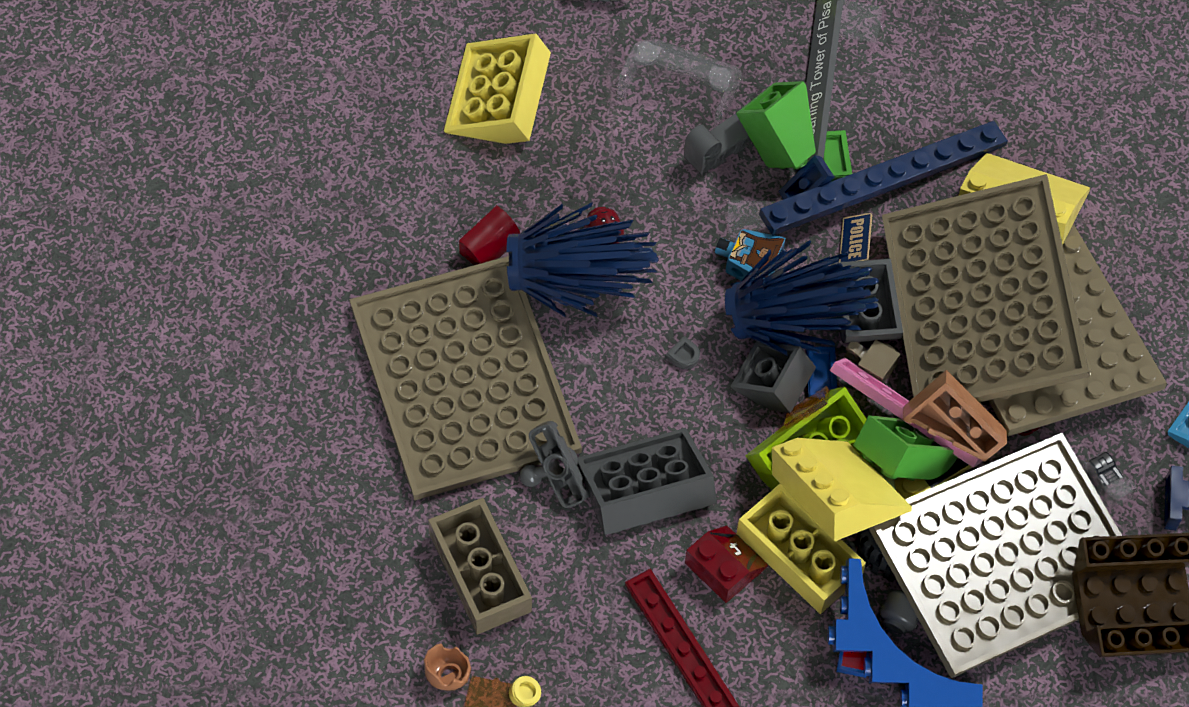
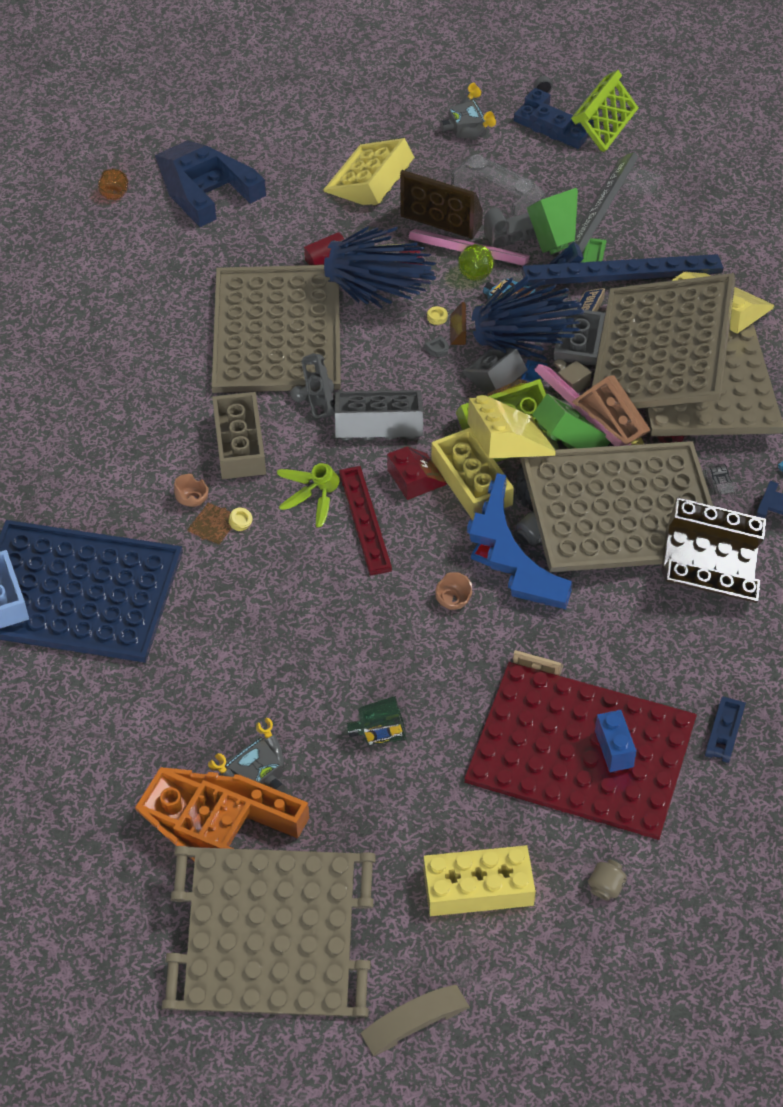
camera: 20 degrees right, 10 degrees down
(155, 184) = (113, 180): none -> clear orange hair
(262, 140) = (196, 169): none -> dark blue wedge
(594, 629) = (323, 477): none -> lime plant
(618, 134) = (440, 205): none -> dark brown slope
(666, 303) = (437, 315): none -> light yellow tile
(672, 184) = (459, 245): none -> bright pink tile
(693, 211) = (475, 262): none -> clear neon green piece
(701, 314) = (458, 325): none -> reddish brown slope

